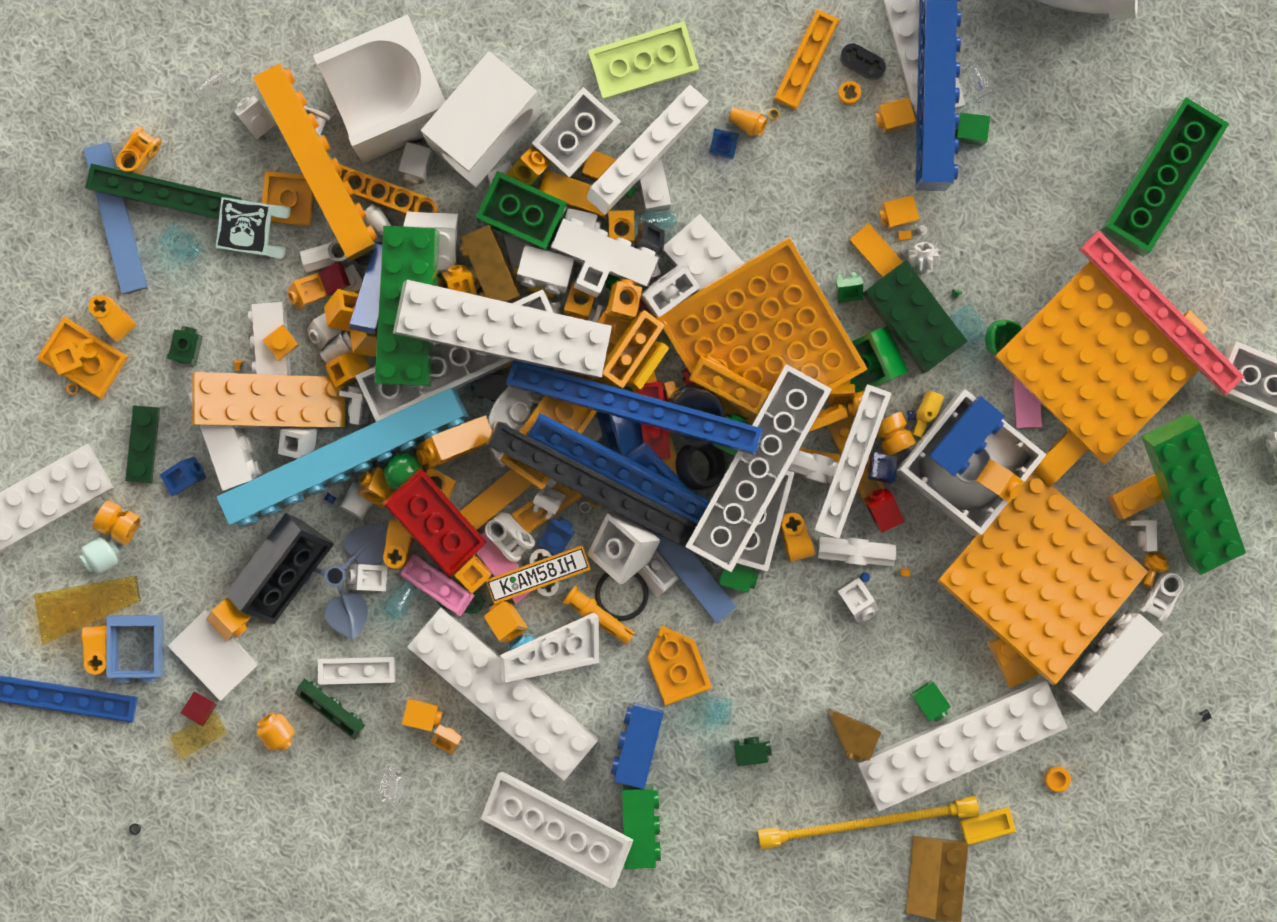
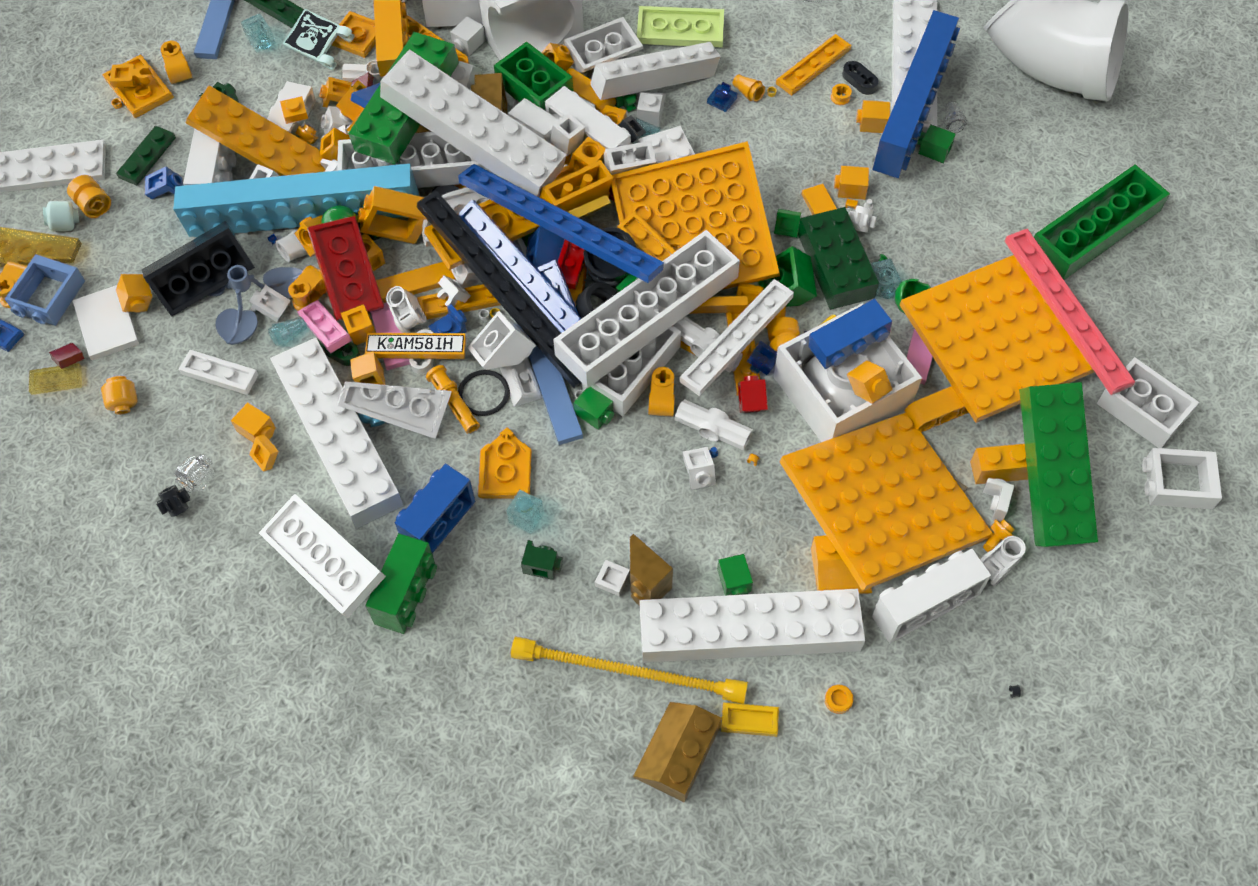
camera: 20 degrees right, 25 degrees down
(301, 356) = (307, 133): none -> light orange plate
(330, 708) = (177, 393): dark green plate -> none
(387, 820) = (173, 501): none -> black gear
(821, 742) = (612, 577): none -> white plate

